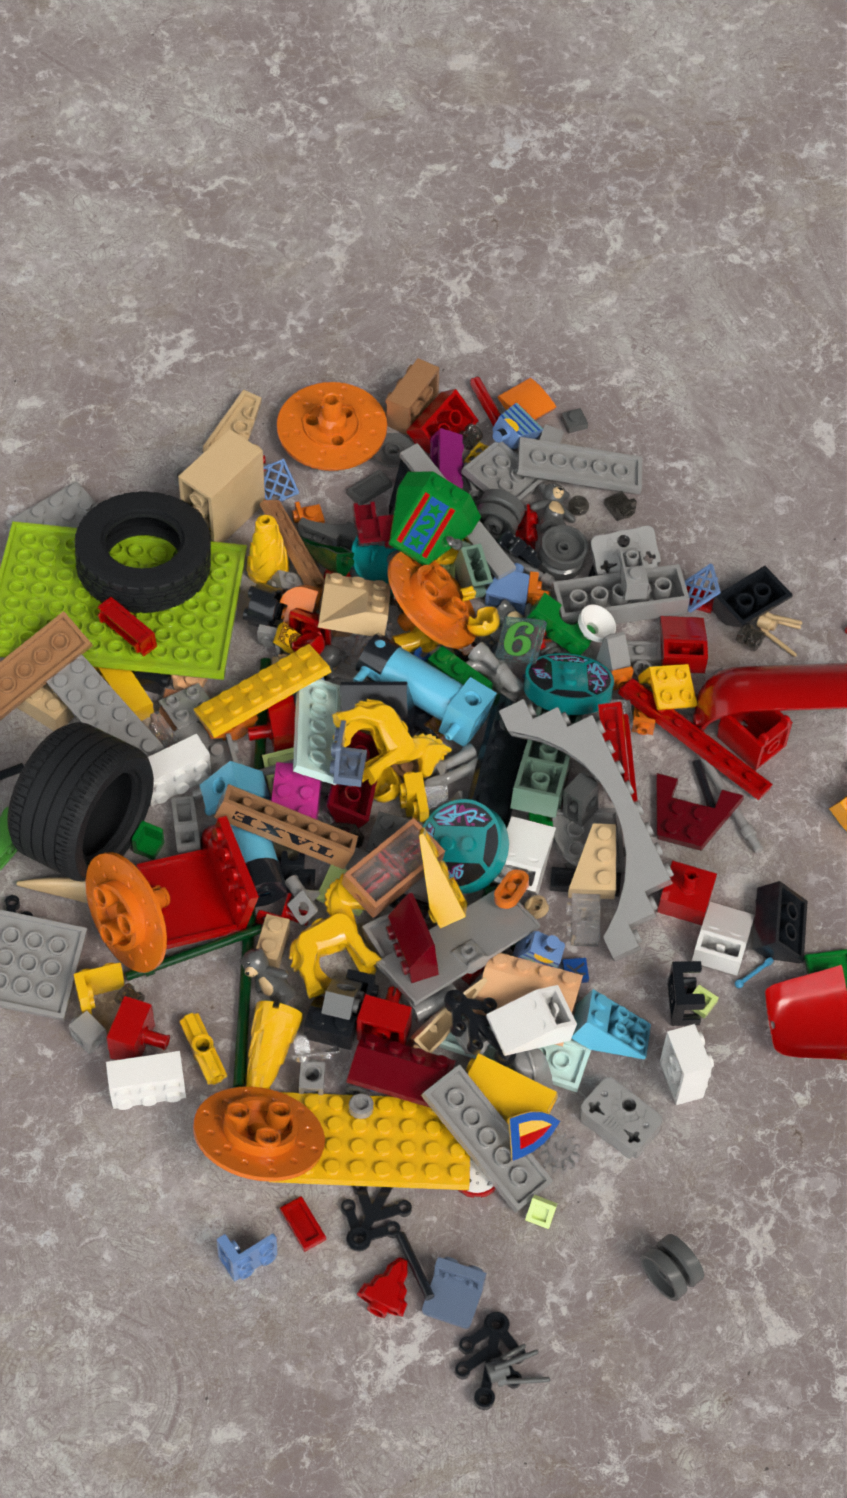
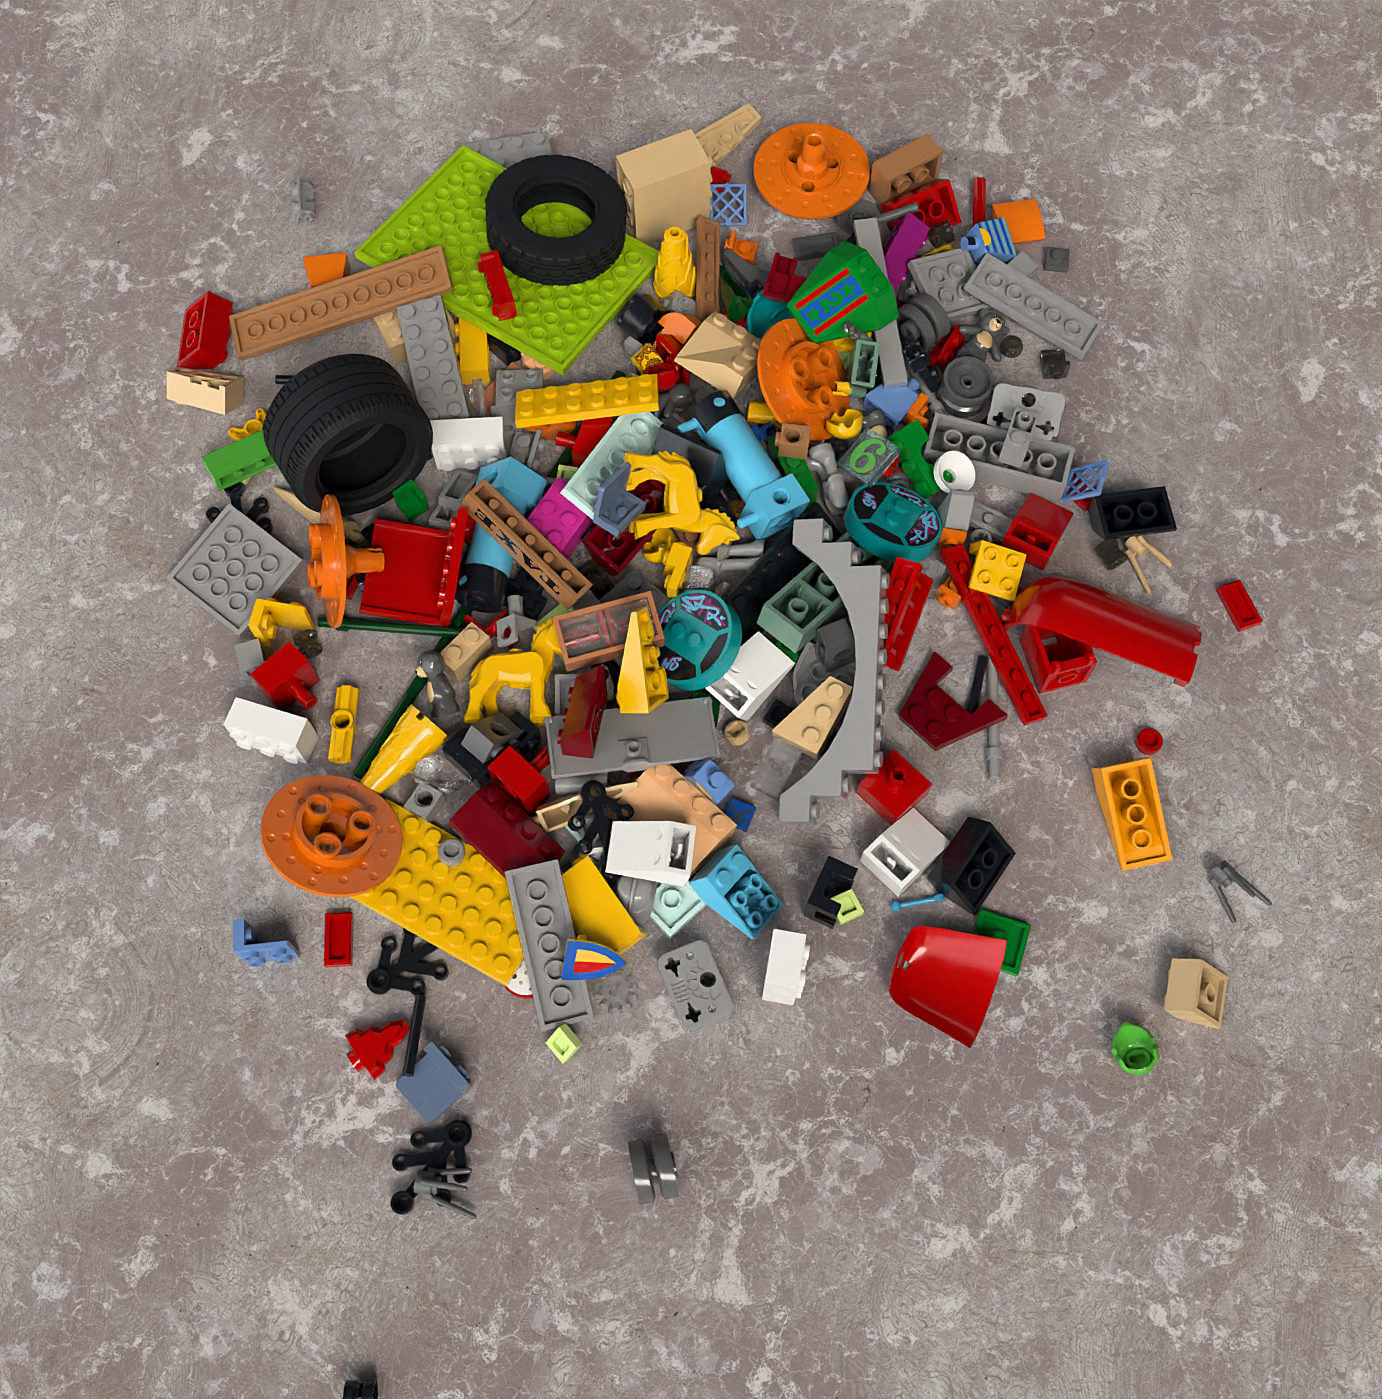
camera: 30 degrees right, 10 degrees up
(423, 437) = (897, 213): none -> dark grey bar
(454, 644) = (793, 449): none -> medium nougat brick
(507, 892) = (710, 705): orange plate -> none

